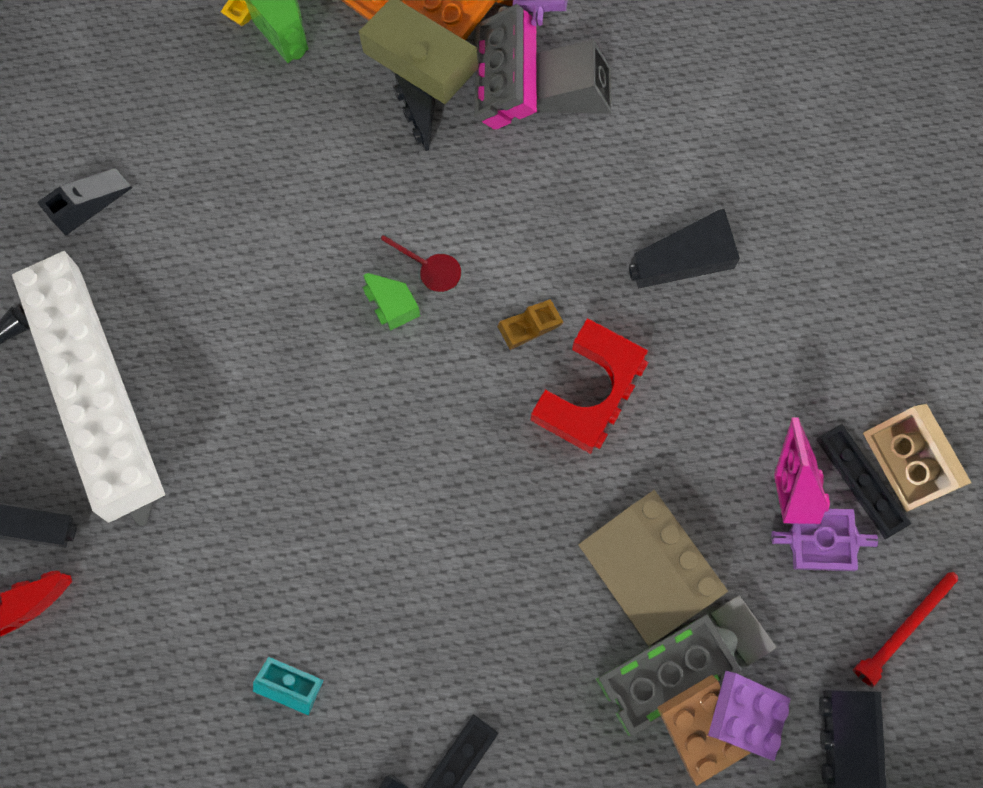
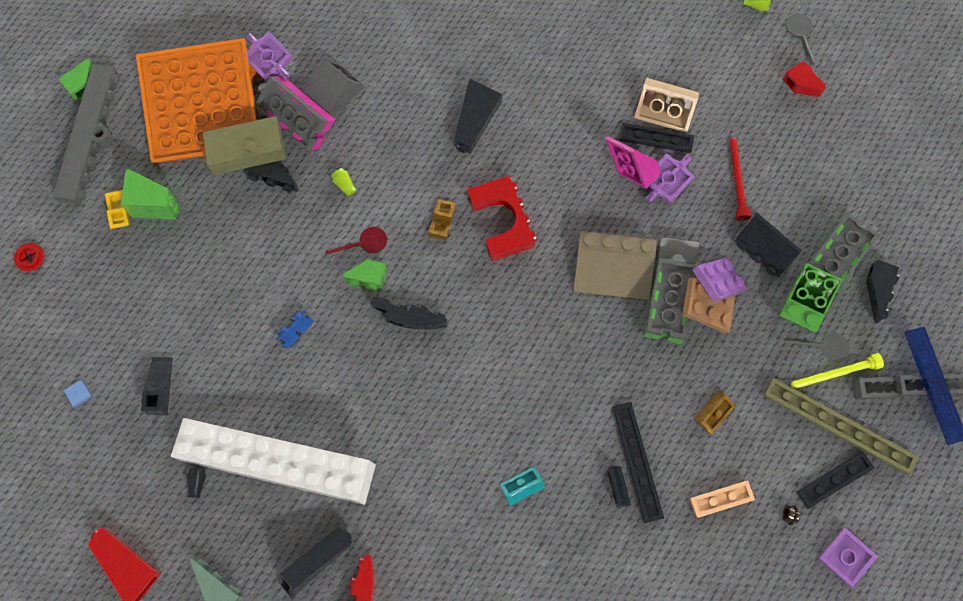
camera: 50 degrees left, 0 degrees up
(20, 133) = (77, 393): none -> medium blue tile
(252, 278) = (288, 333): none -> blue hinge
(384, 391) = (416, 318): none -> black slope
(478, 182) = (343, 181): none -> lime cone

